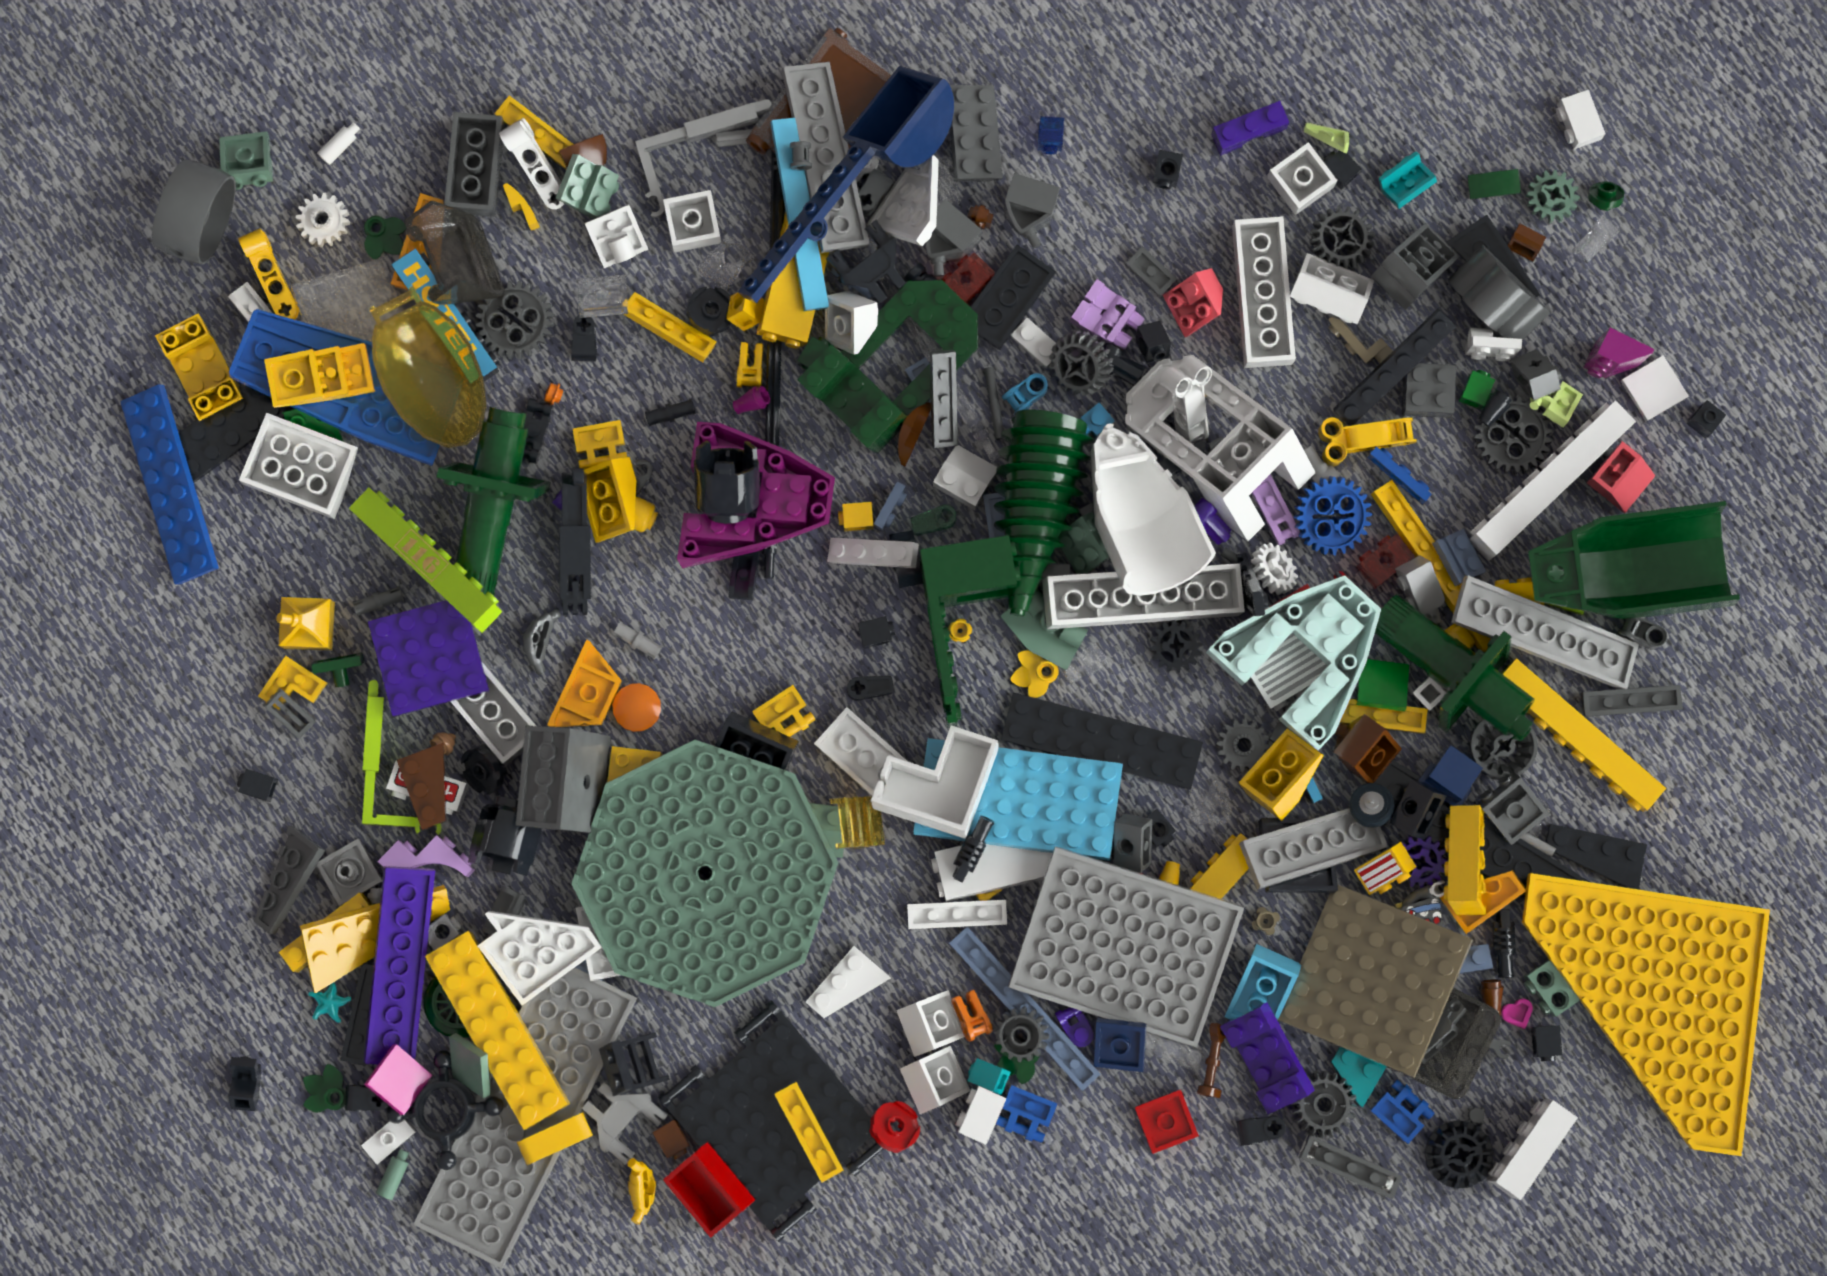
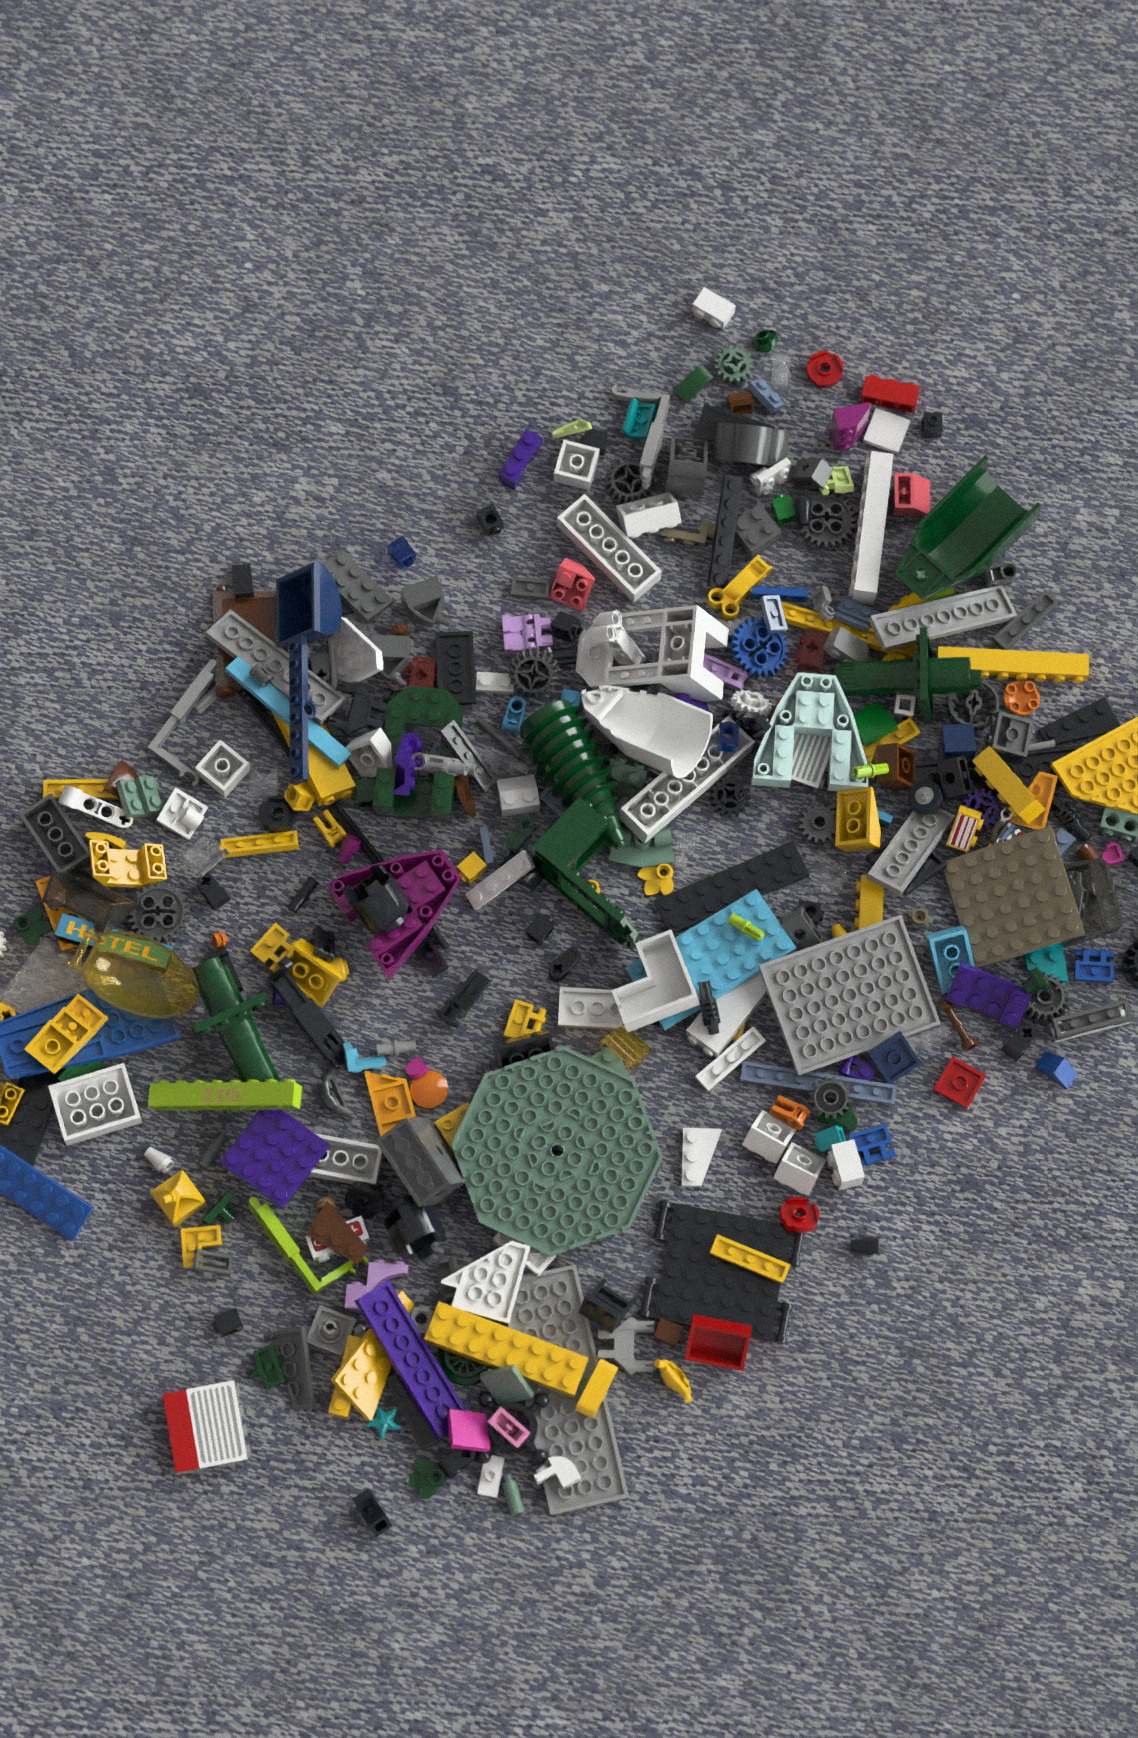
camera: 40 degrees left, 10 degrees down
(155, 872) = (206, 1426): none -> panel
(260, 859) = (267, 1367): none -> dark green plate
(319, 570) = (159, 1160): none -> white cone
(438, 1109) = (509, 1427): none -> bright pink slope
(457, 1191) = (561, 1468): none -> white brick
(518, 247) = (126, 866): none -> yellow slope
(587, 628) = (357, 1065): none -> medium azure bracket
(640, 677) = (416, 1068): none -> dark pink tile
(648, 478) = (324, 944): none -> black plate
(740, 644) = (463, 999): none -> black piece
(867, 40) = (242, 581): none -> black tile
(872, 359) = (409, 745): none -> dark purple piece
(906, 394) = (445, 765): none -> light grey connector
(937, 1209) = (865, 1245): none -> black cone
(1076, 796) = (745, 927): none -> lime axle
(1209, 590) = (727, 744): none -> clear blue brick
(1275, 1185) = (1057, 1069): none -> blue slope
(1328, 1086) = (1038, 980): none -> dark green tile
(1333, 736) = (869, 770): none -> lime axle
(1373, 493) = (773, 614): none -> plate
(1411, 206) = (655, 433): none -> light grey hinge
(1436, 515) = (821, 600): none -> light grey plate
(1558, 254) = (765, 395): none -> sand blue plate
(1560, 777) = (1021, 697): none -> orange dish
(1655, 266) = (825, 359): none -> red plate
(1690, 351) = (890, 393): none -> red brick

